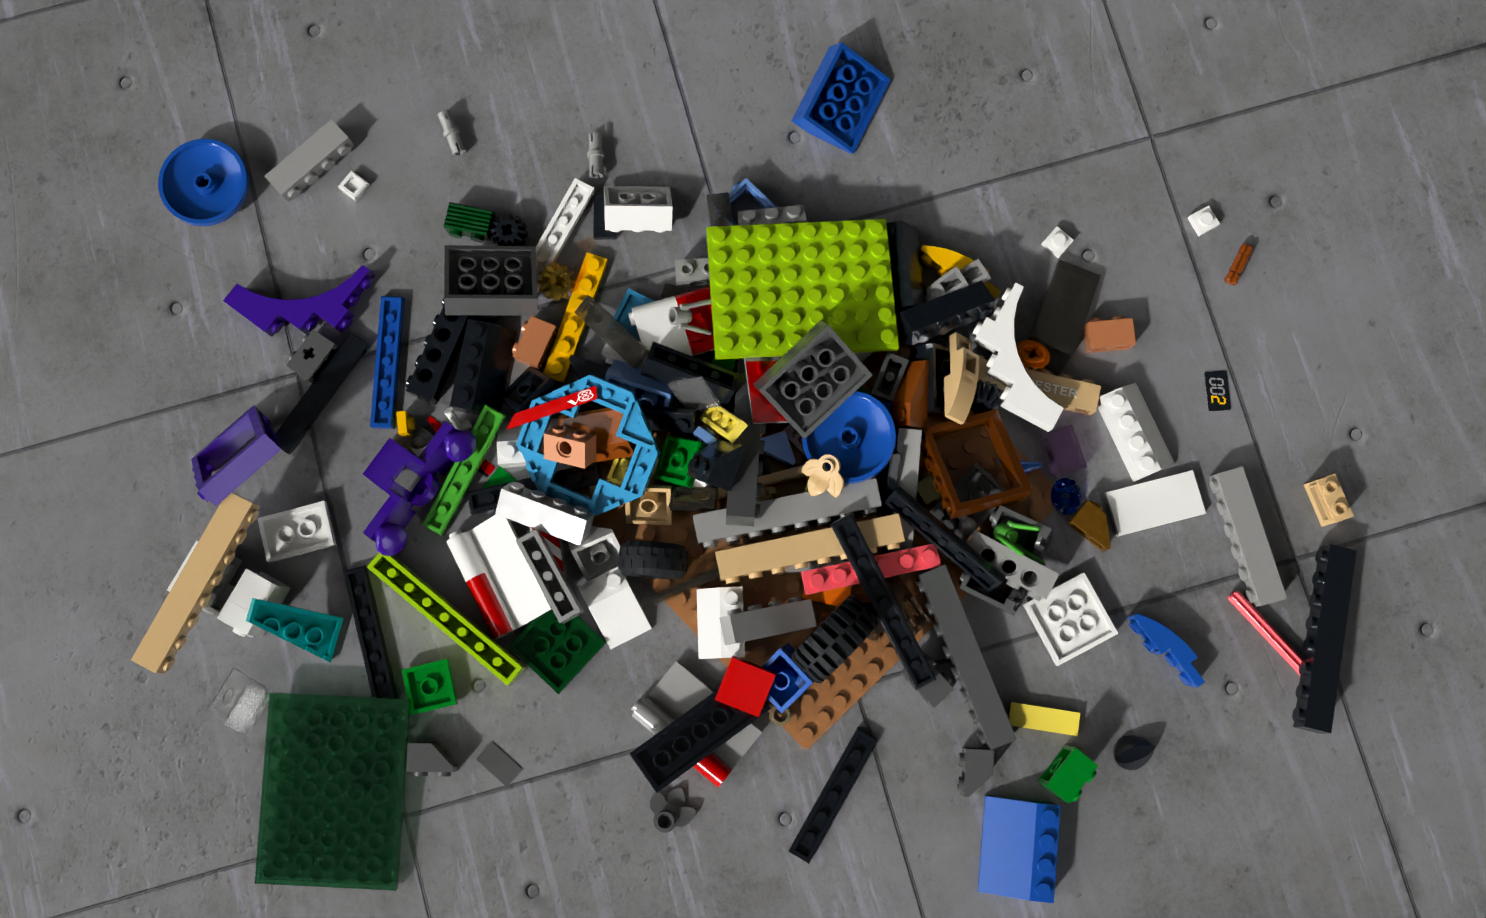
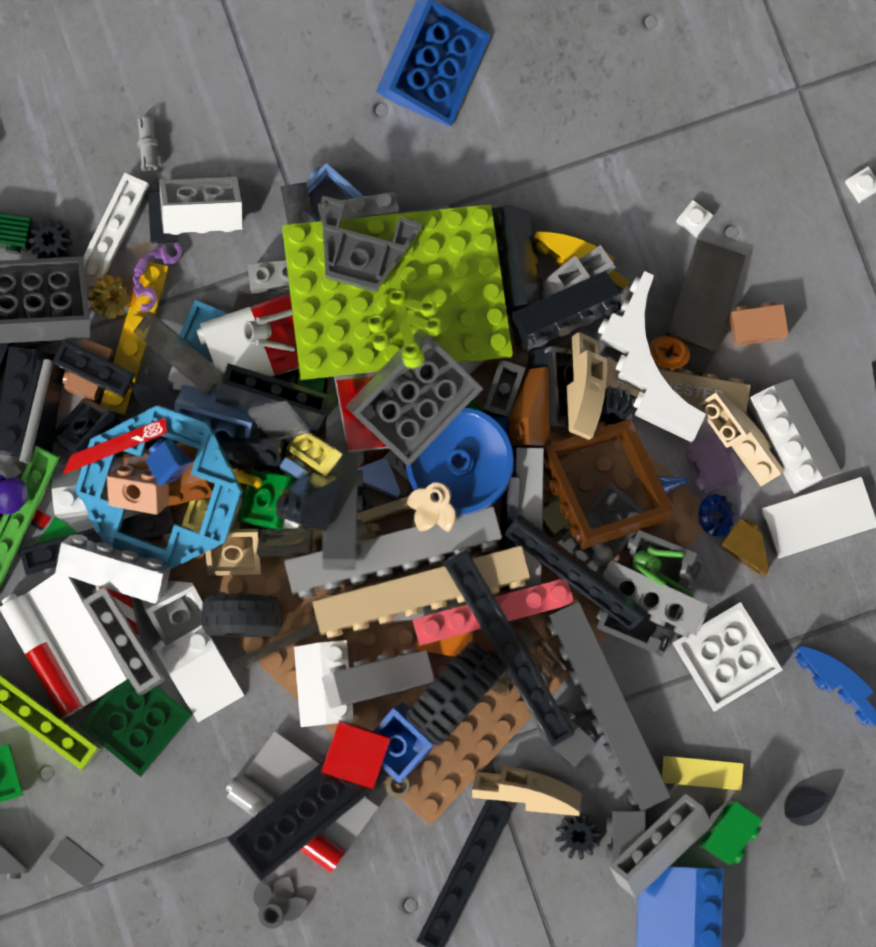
camera: 10 degrees left, 0 degrees up
(487, 376) = (36, 411): none -> light grey piece
(538, 341) = (93, 368): none -> black tile
(583, 259) = (141, 268): none -> medium lavender piece
(596, 423) = (167, 461): none -> blue slope
(666, 443) = (248, 479): none -> yellow piece
(772, 257) = (357, 257): none -> dark grey wing
(804, 297) = (399, 303): none -> lime plant
(898, 725) = (525, 786): none -> tan slope
(930, 776) = (577, 845): none -> black gear
(1006, 781) = (660, 845): none -> light grey brick
(1092, 428) = (743, 435): none -> tan slope

